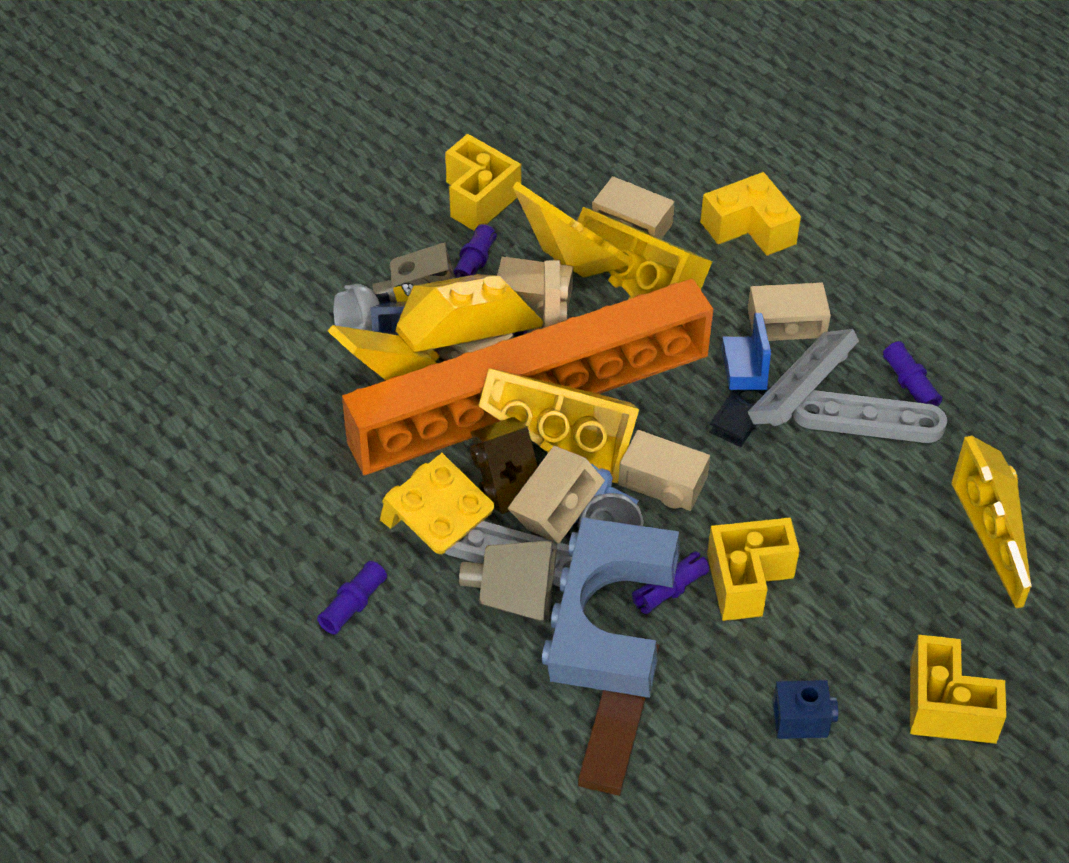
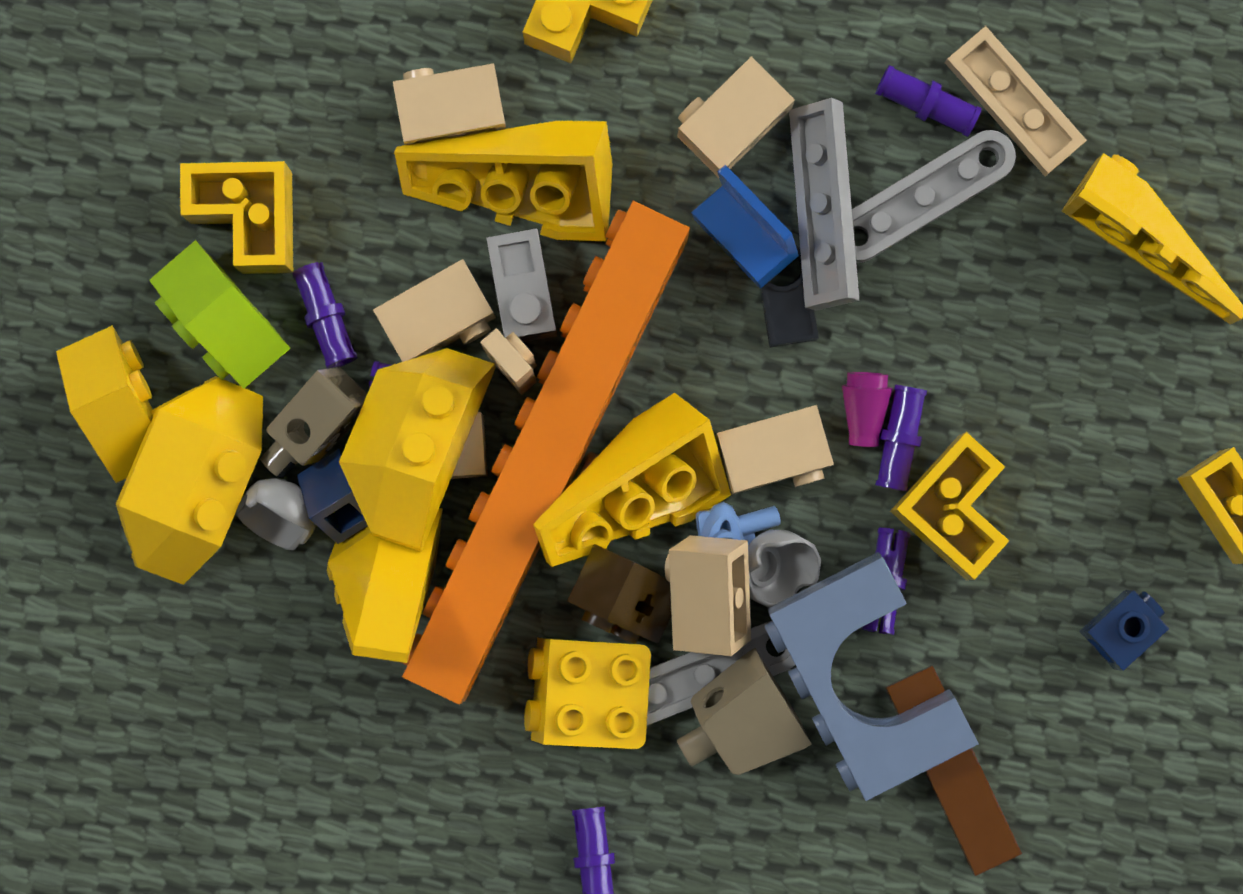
camera: 40 degrees left, 35 degrees up
(320, 262) = (190, 477): none -> yellow wedge
(322, 214) = (108, 397): none -> yellow brick
(417, 213) = (215, 313): none -> lime brick
(568, 239) = (440, 230): yellow wedge -> none
(597, 289) = (521, 285): none -> light grey brick
(741, 488) = (866, 405): none -> magenta cone
(759, 509) = (901, 437): none -> dark purple pin
(965, 403) = (1015, 101): none -> tan plate

